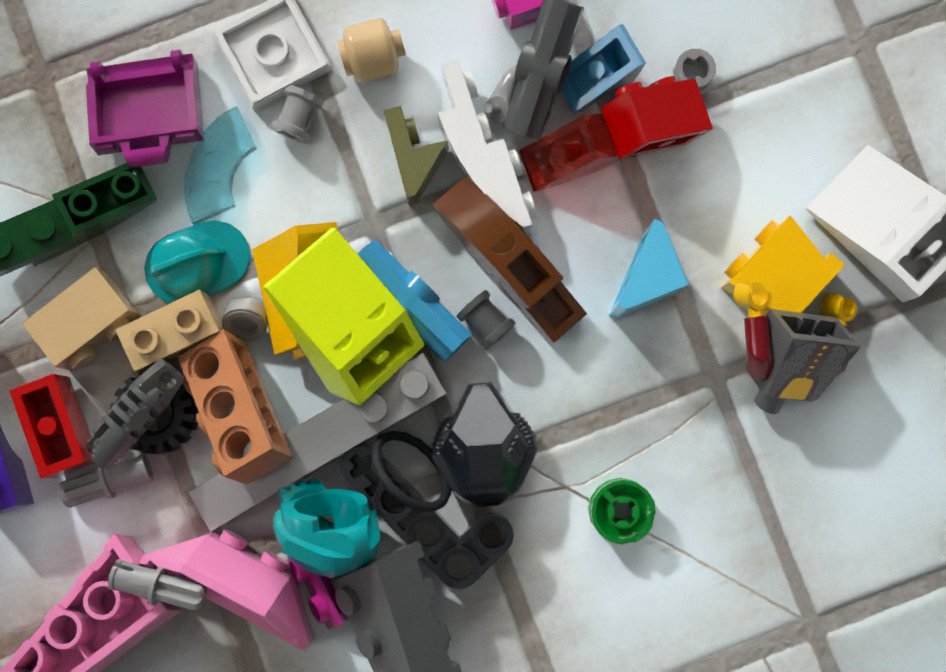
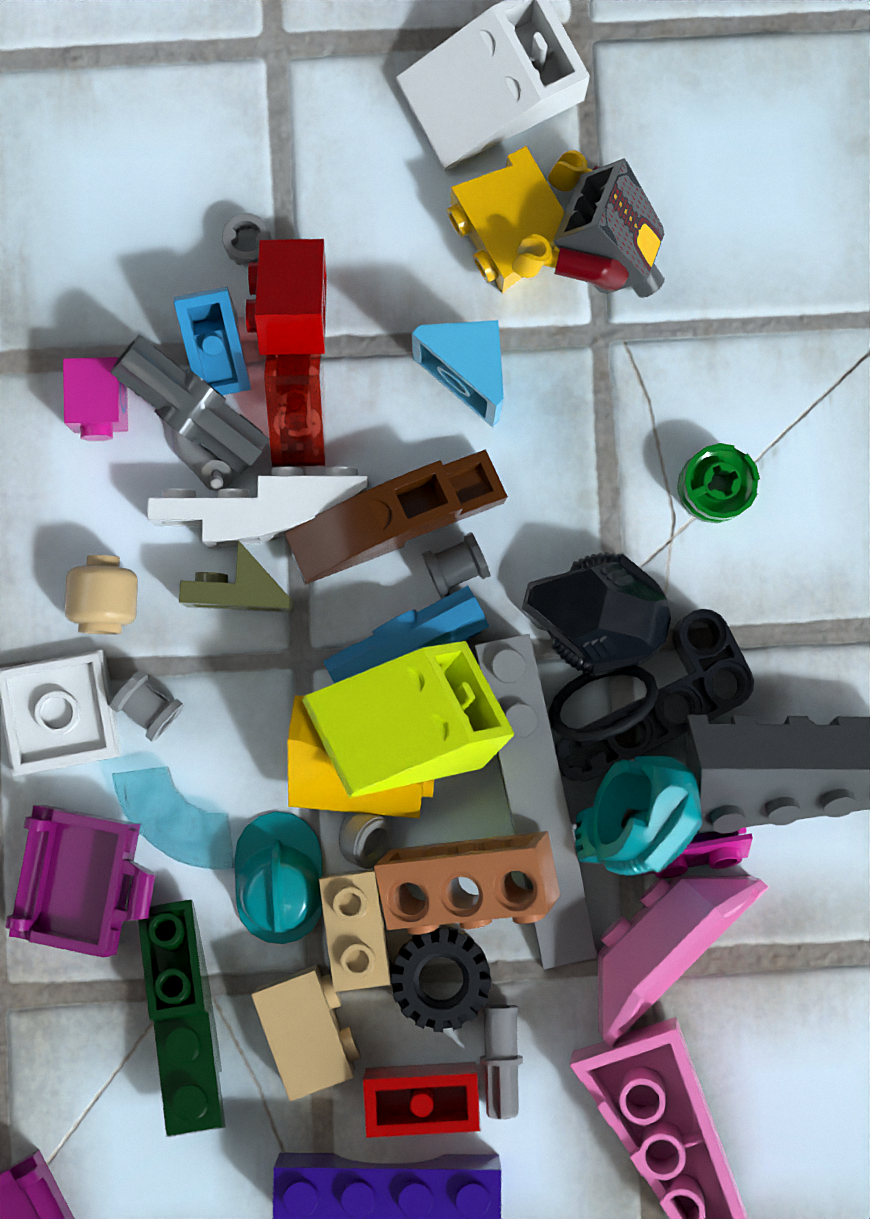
camera: 75 degrees left, 0 degrees up
(134, 413) = (439, 1000): dark grey hinge -> none
(156, 585) = (647, 1030): light grey axle -> none

